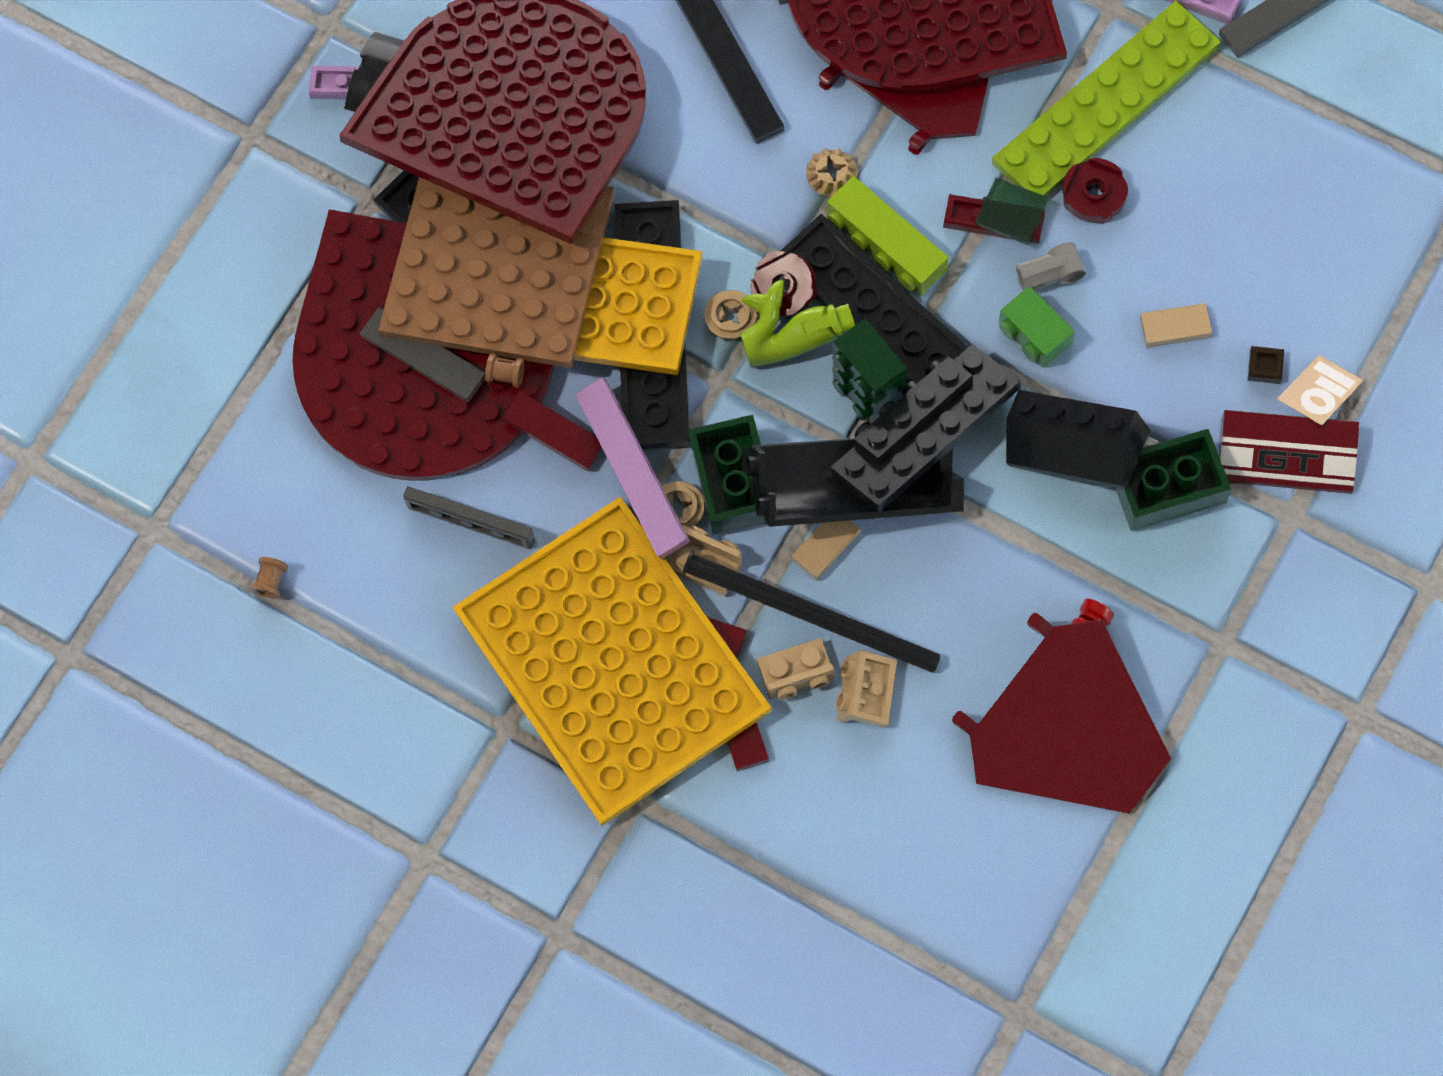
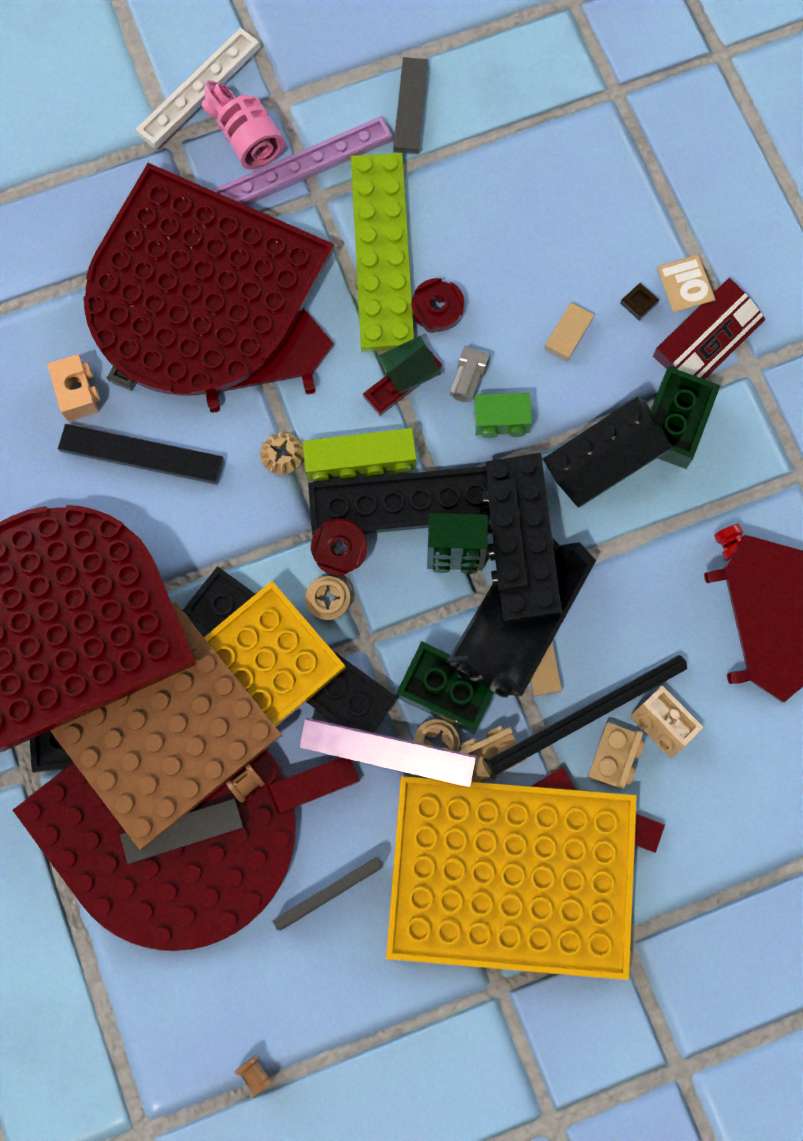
camera: 55 degrees left, 5 degrees up
(800, 335) = (384, 563): lime piece -> none

